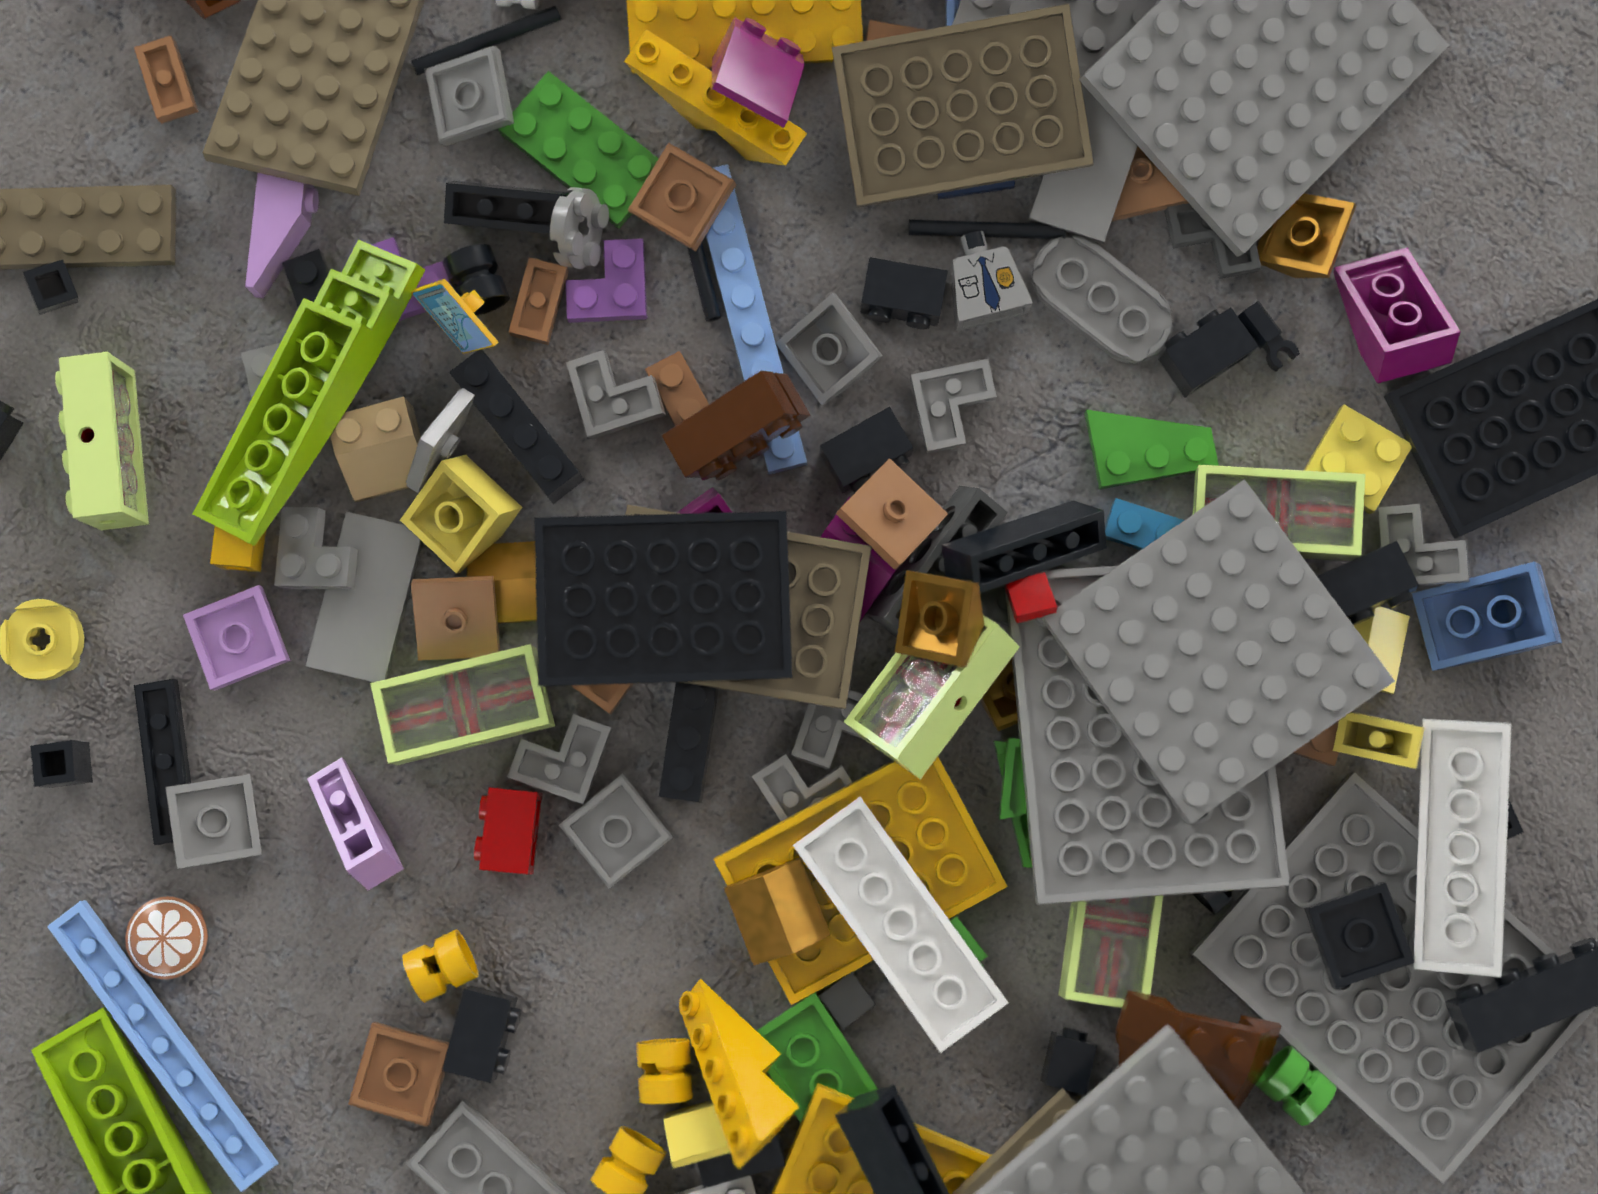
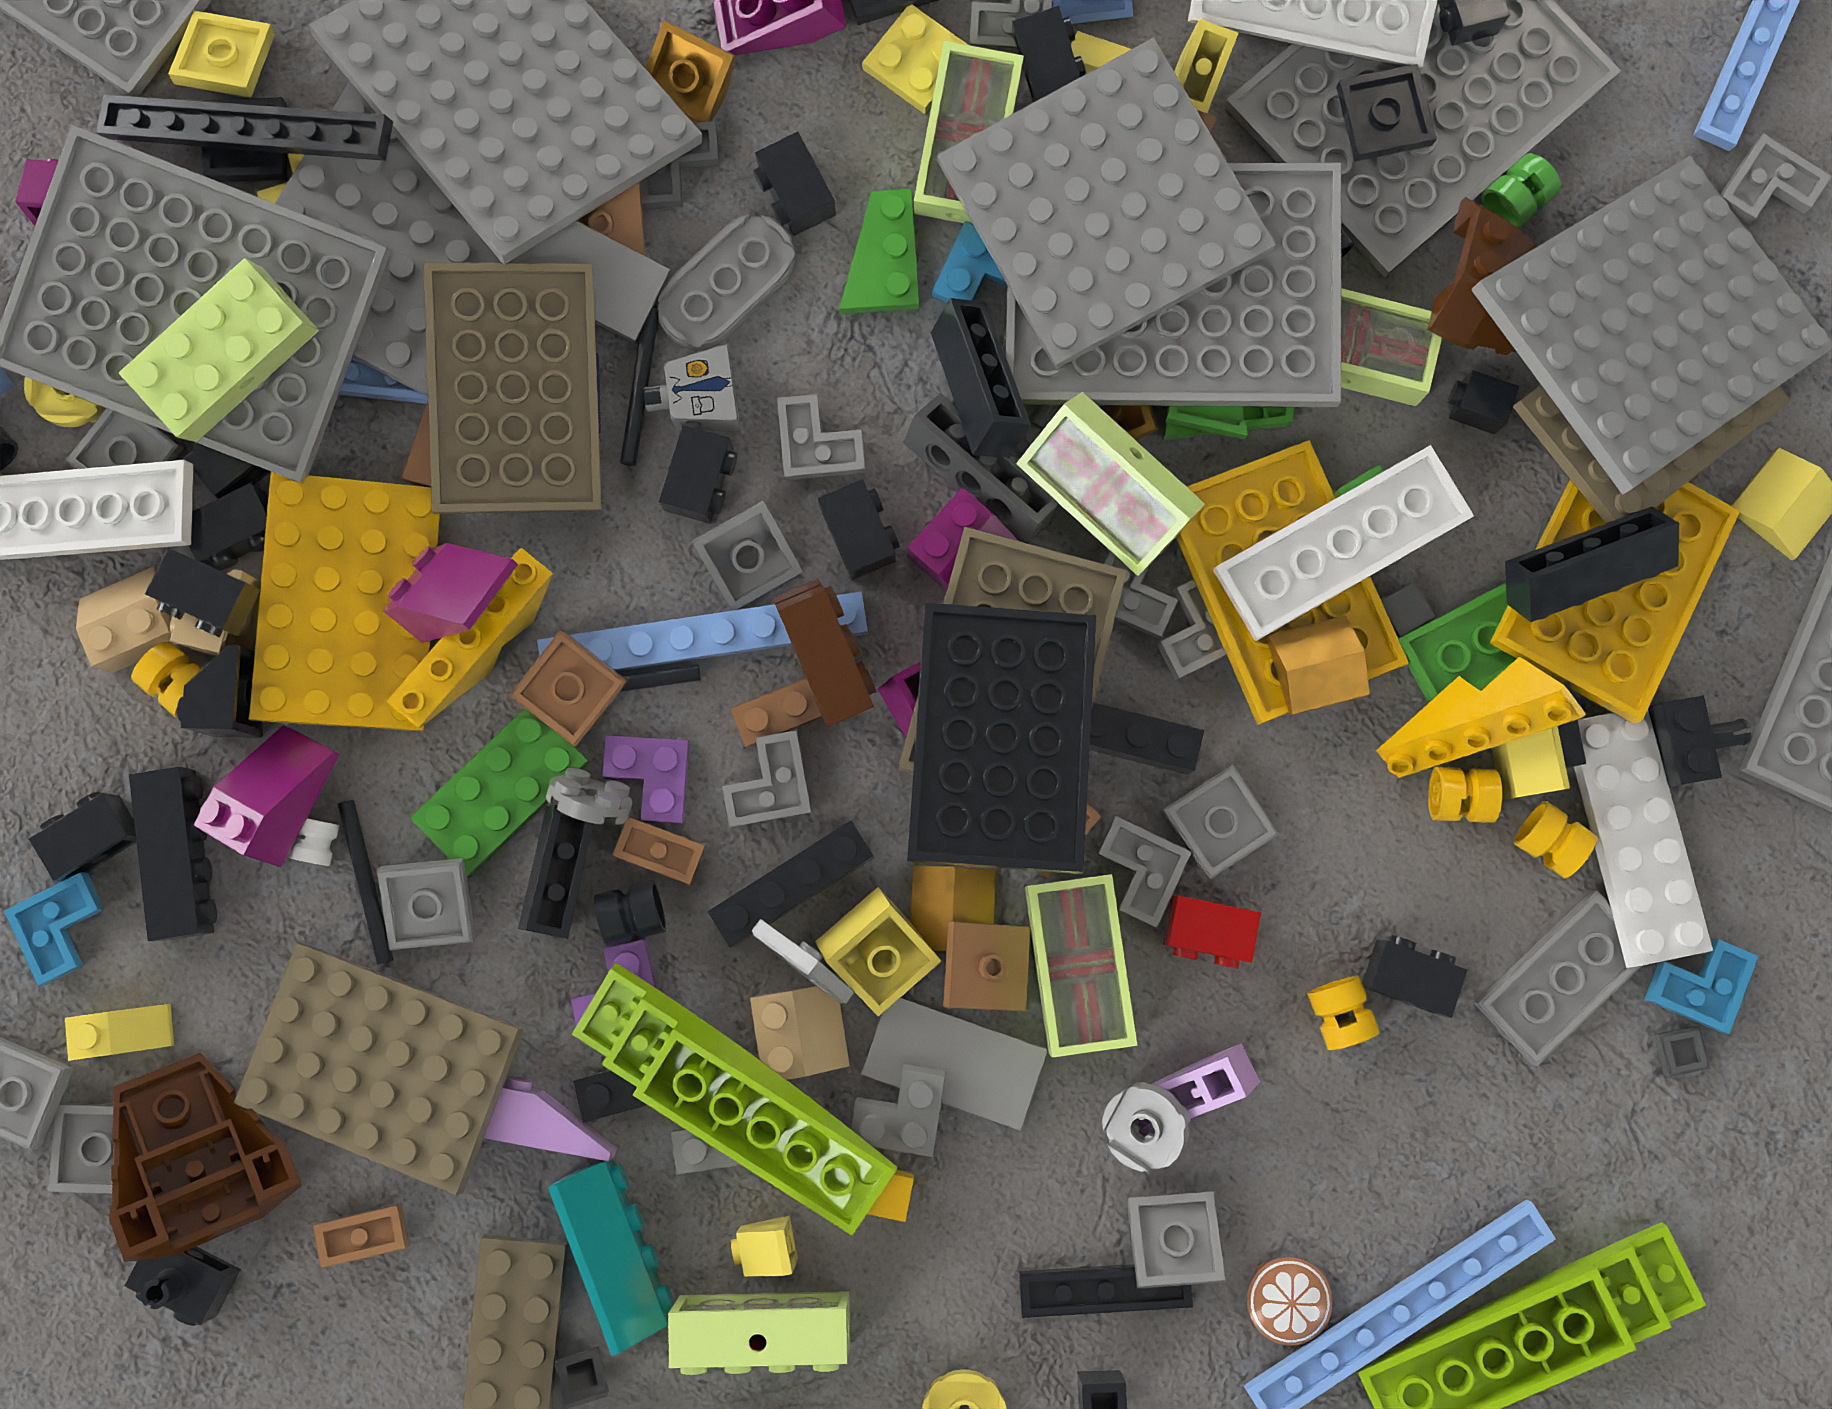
camera: 85 degrees left, 0 degrees up
(162, 299) = (612, 1253): none -> teal slope
(179, 441) = (765, 1248): none -> light yellow slope
(236, 637) = (983, 1202): lavender plate -> none
(329, 796) = (1168, 1120): none -> plate
(400, 1074) = (1447, 1064): medium nougat plate -> none
(456, 315) = (672, 931): piece -> none
(892, 514) = (932, 504): medium nougat plate -> none
(939, 618) = (1050, 463): pearl gold slope -> none
(1031, 598) = (1035, 374): red tile -> none
(1267, 335) = (784, 124): black bar -> none

